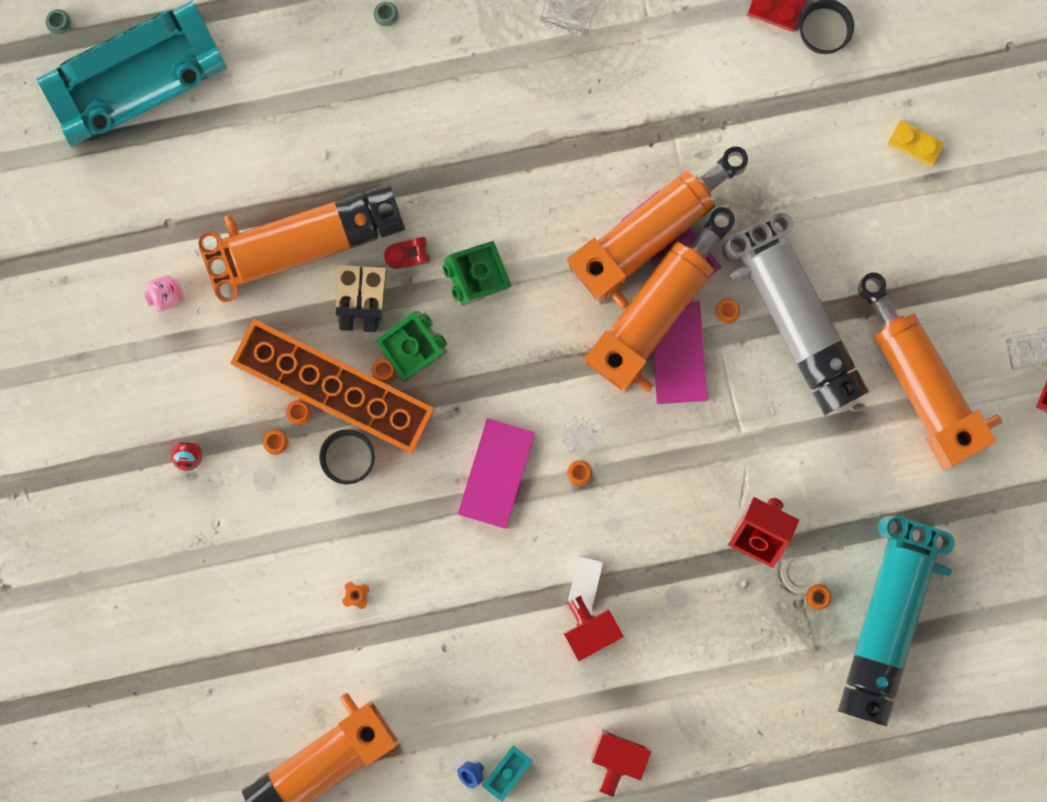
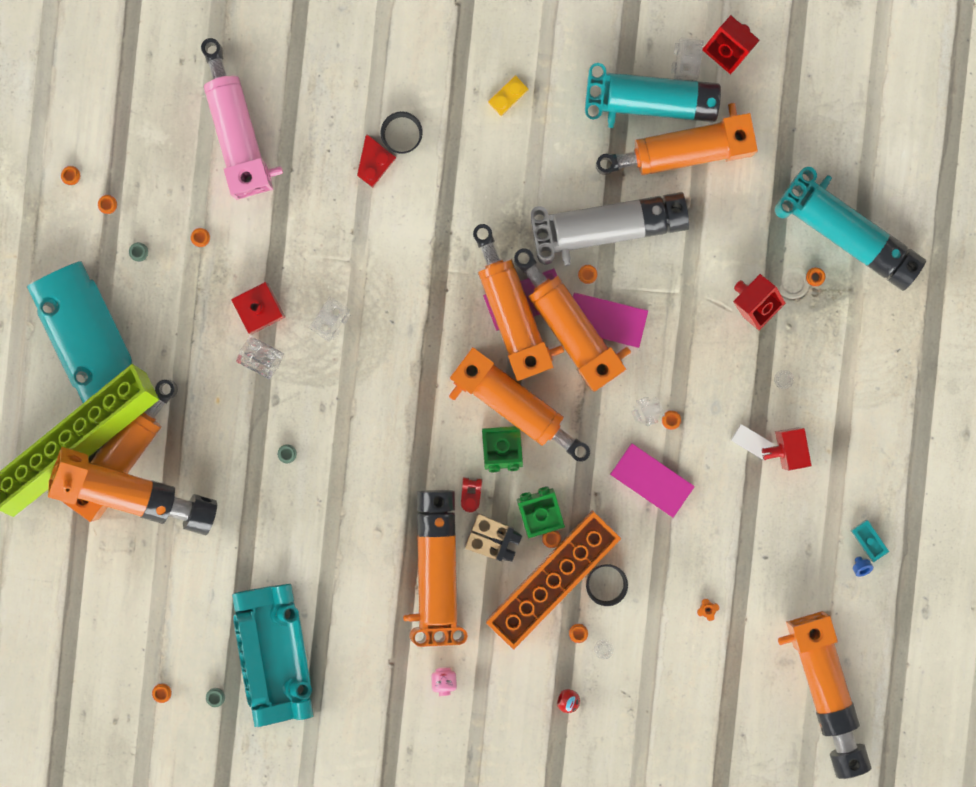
camera: 75 degrees left, 5 degrees up
(298, 412) = (562, 610): orange plate -> none
(538, 264) = (513, 402): none -> orange piece
(619, 758) = (887, 457): red brick -> none
(974, 316) = (652, 97): none -> teal piece

